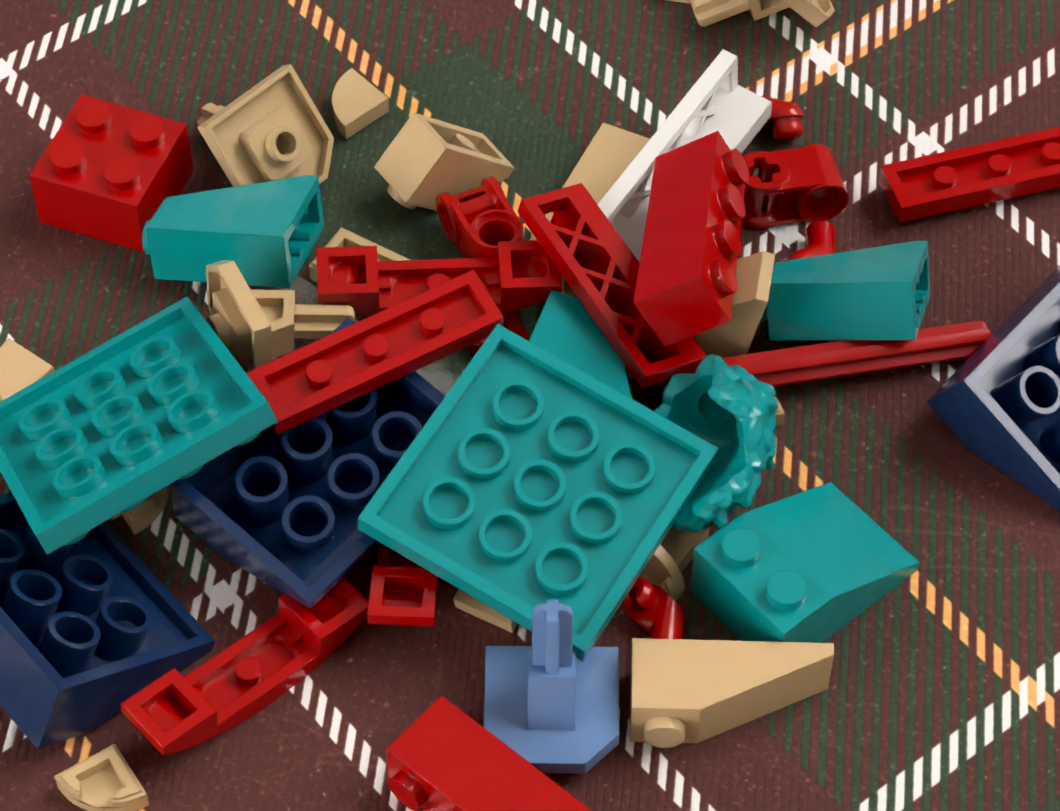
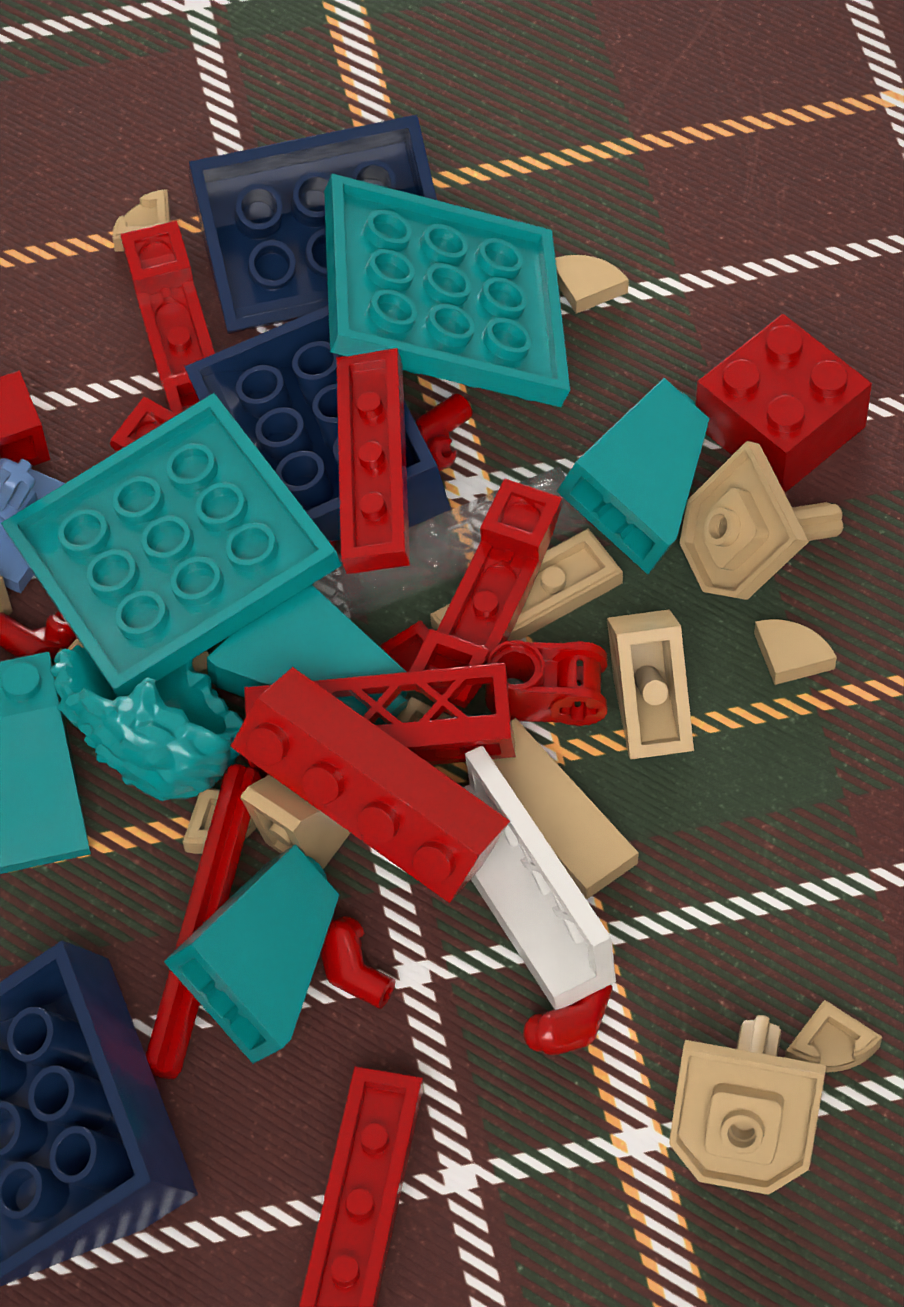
camera: 120 degrees right, 5 degrees up
(263, 322) = (505, 429): tan piece -> none
(794, 185) = (448, 985): red piece -> none

